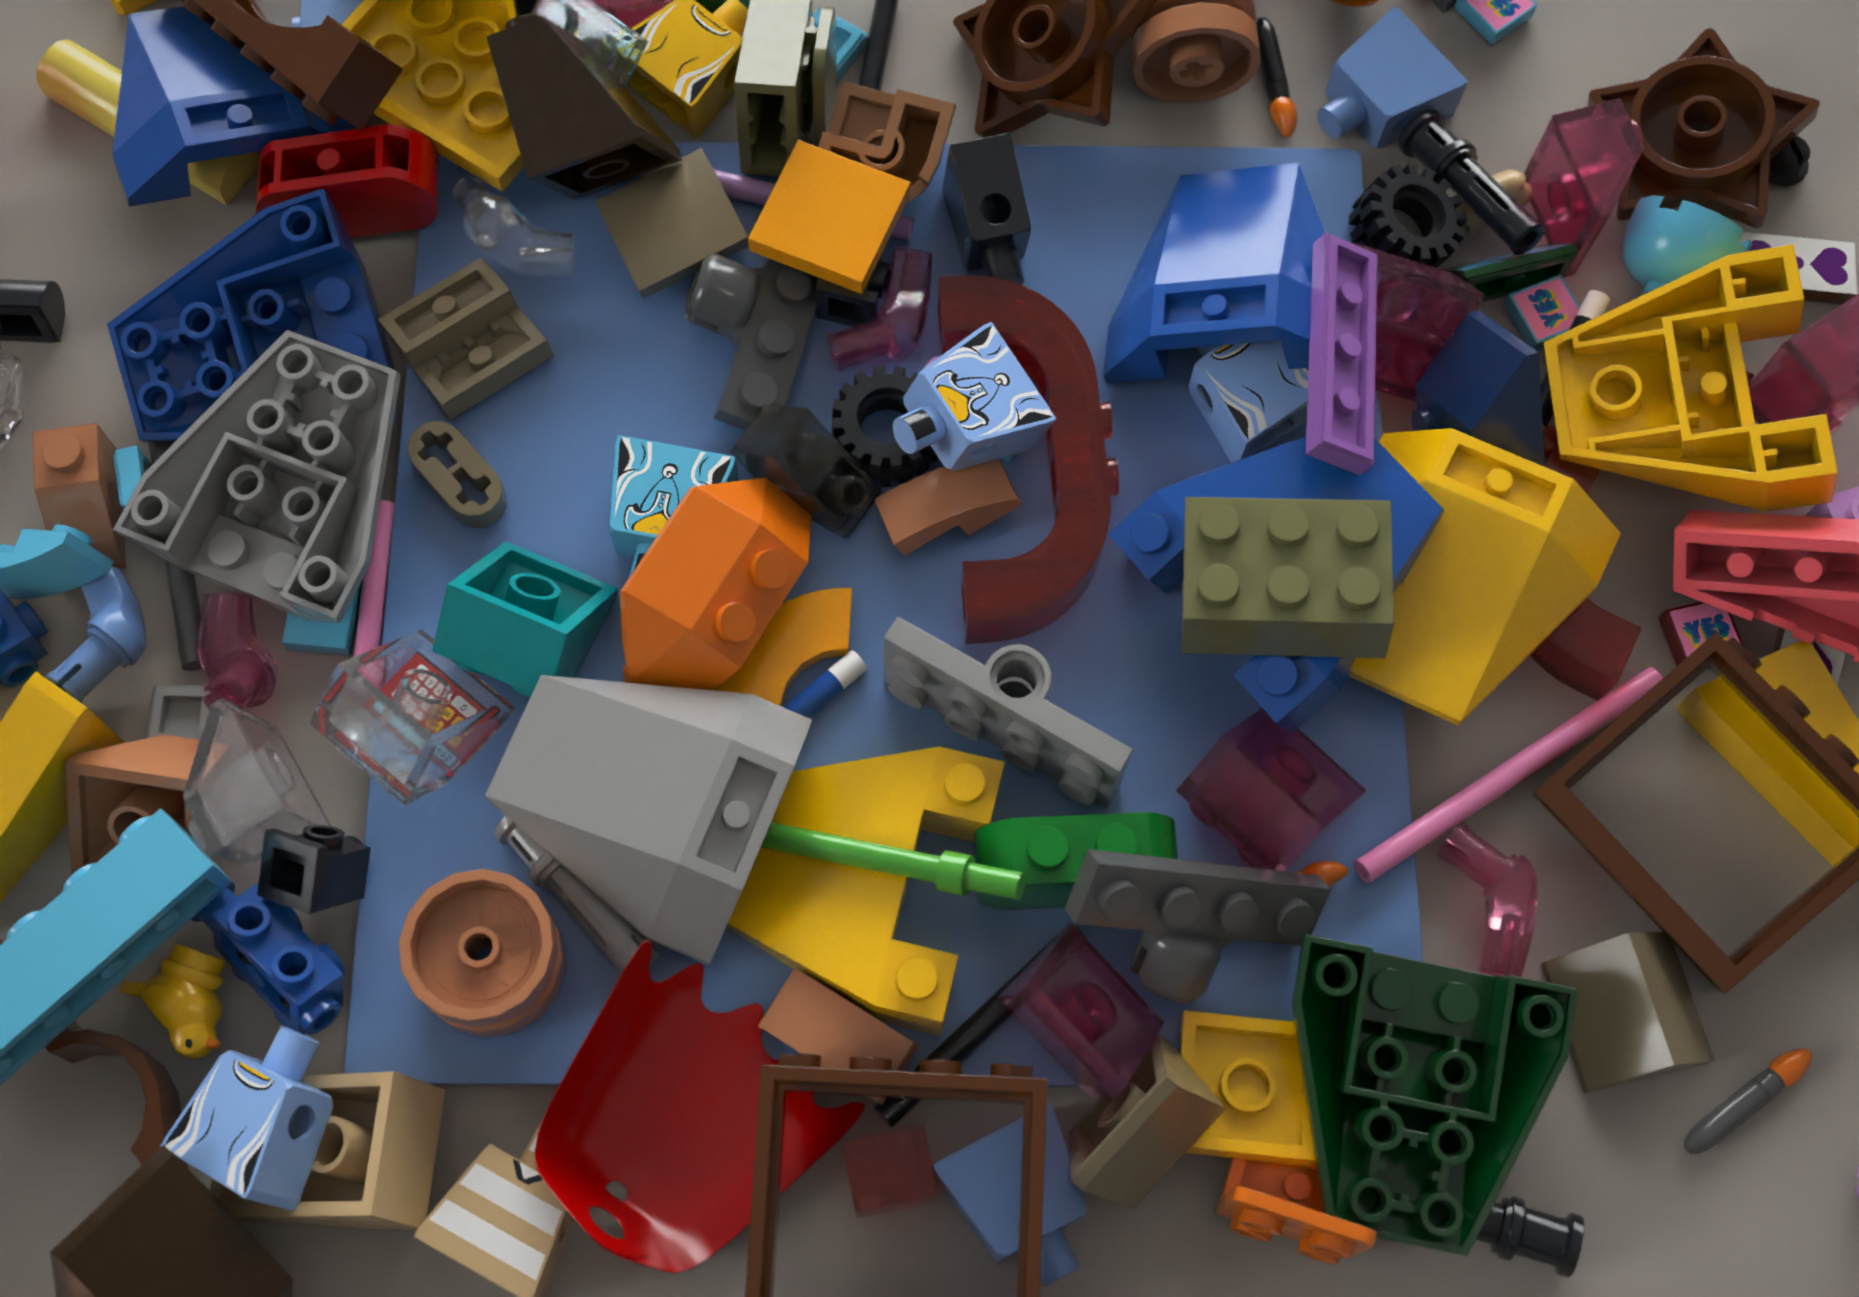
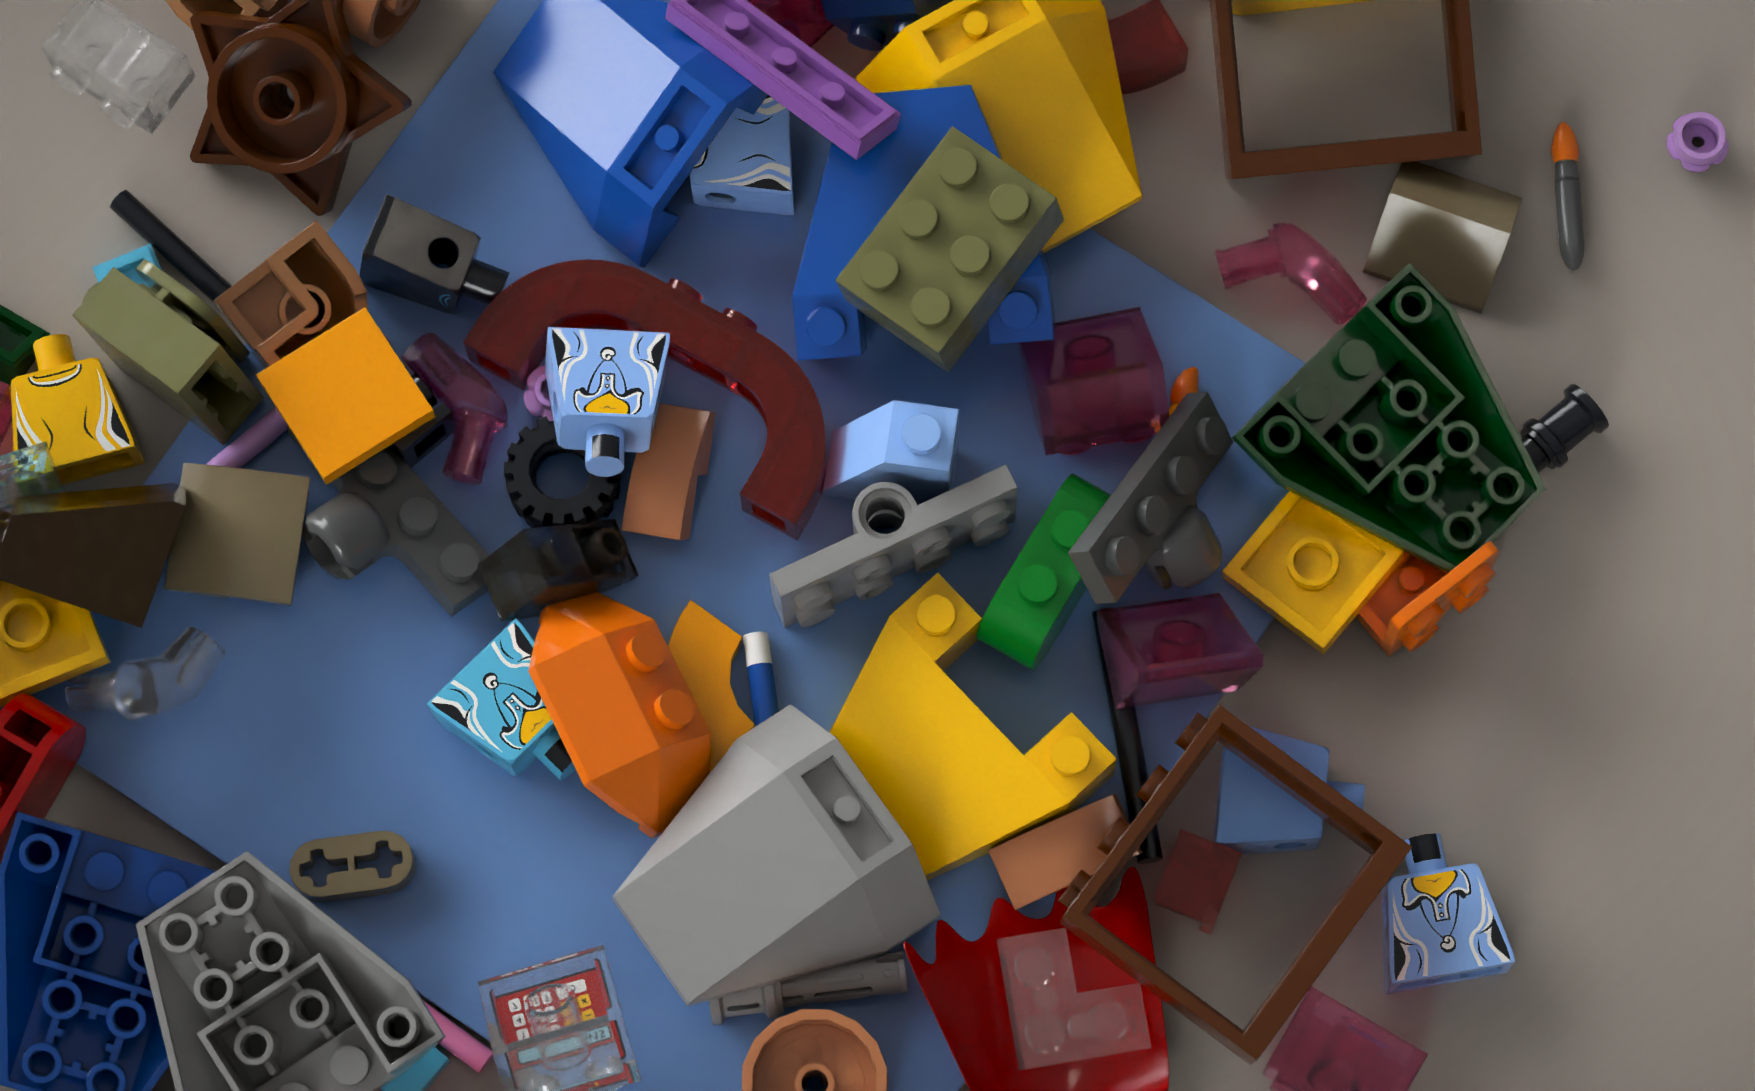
camera: 50 degrees left, 5 degrees up
(466, 338) = (222, 782): dark tan slope -> none
(521, 617) = (535, 886): teal slope -> none
(680, 1133) = (1052, 1019): none -> clear plate
(950, 872) = (1006, 671): bright green bar -> none
(1092, 668) = (898, 445): none -> light blue slope
(1141, 1133) = (1300, 679): dark tan slope -> none
(1504, 777) = (1200, 186): bright pink piece -> none

